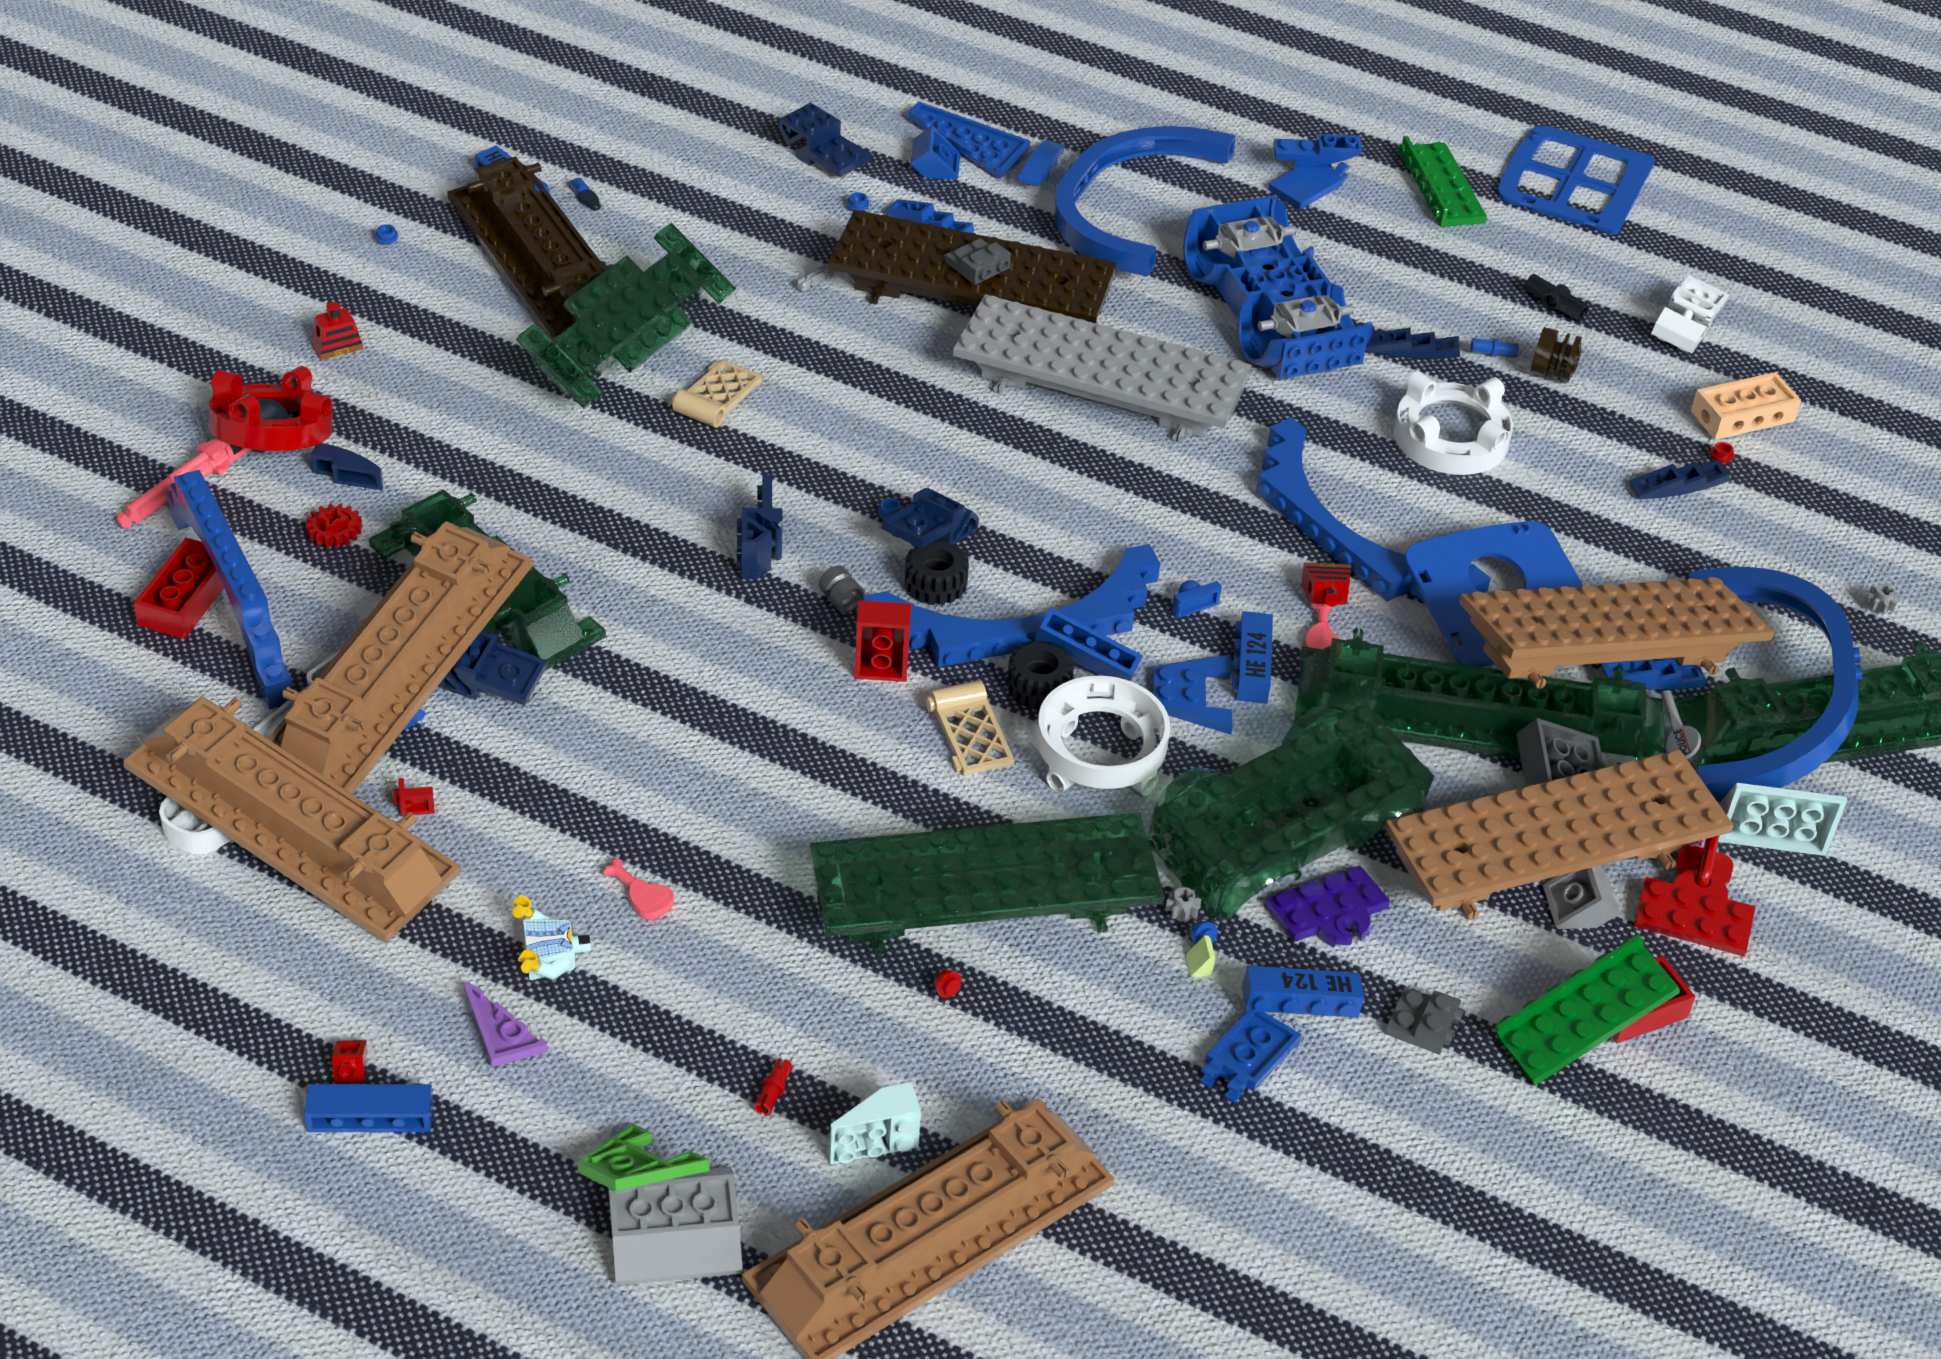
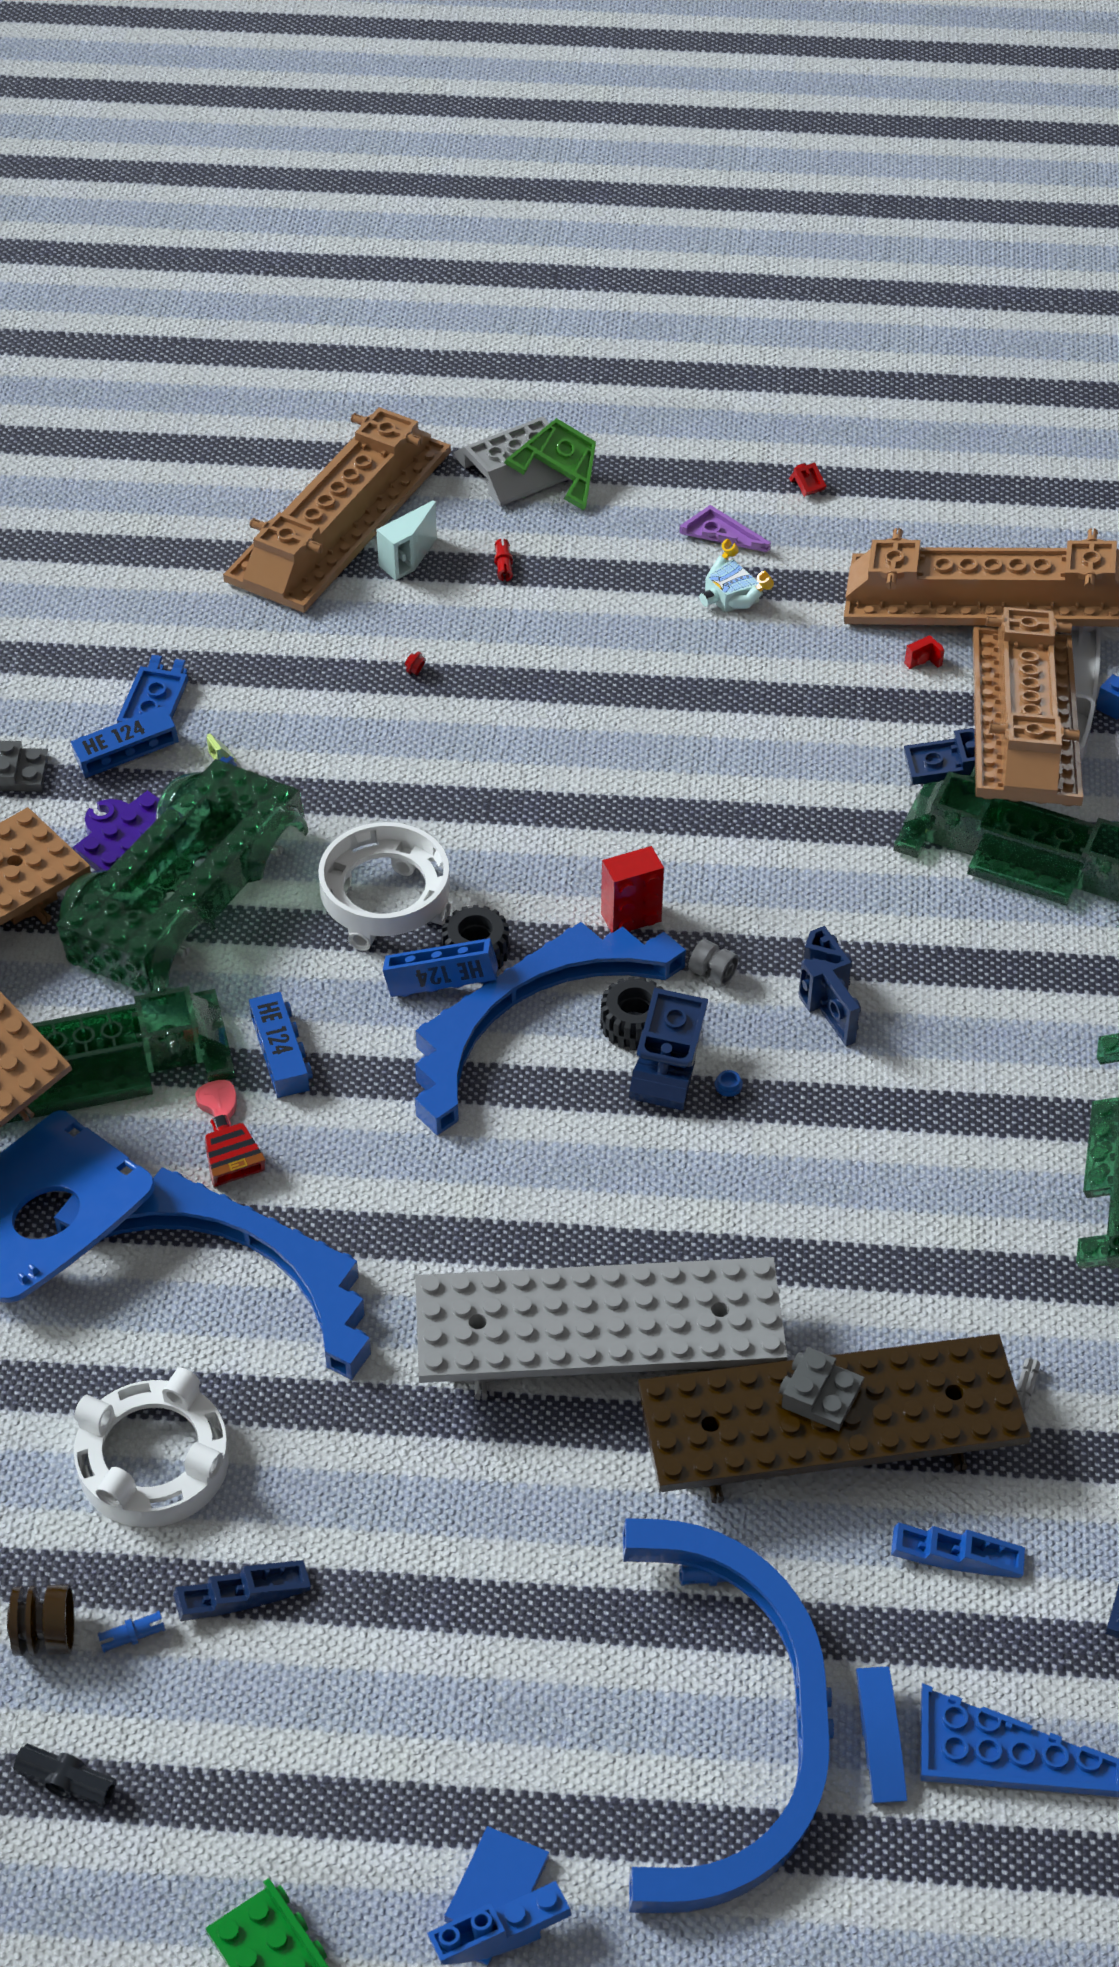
camera: 160 degrees right, 5 degrees up
(369, 1107) = (767, 455): blue brick -> none
(647, 900) = (687, 652): coral piece -> none
(706, 407) = (1006, 1131): tan piece -> none
(858, 201) = (1066, 1545): blue plate -> none
(935, 156) = (1026, 1677): blue slope -> none
(961, 702) = (534, 895): tan piece -> none
(984, 874) = (416, 710): clear green piece -> none
(1183, 691) = (337, 992): blue wing -> none
(1194, 597) = (365, 1091): blue tile -> none
(1288, 334) = (482, 1654): blue piece -> none

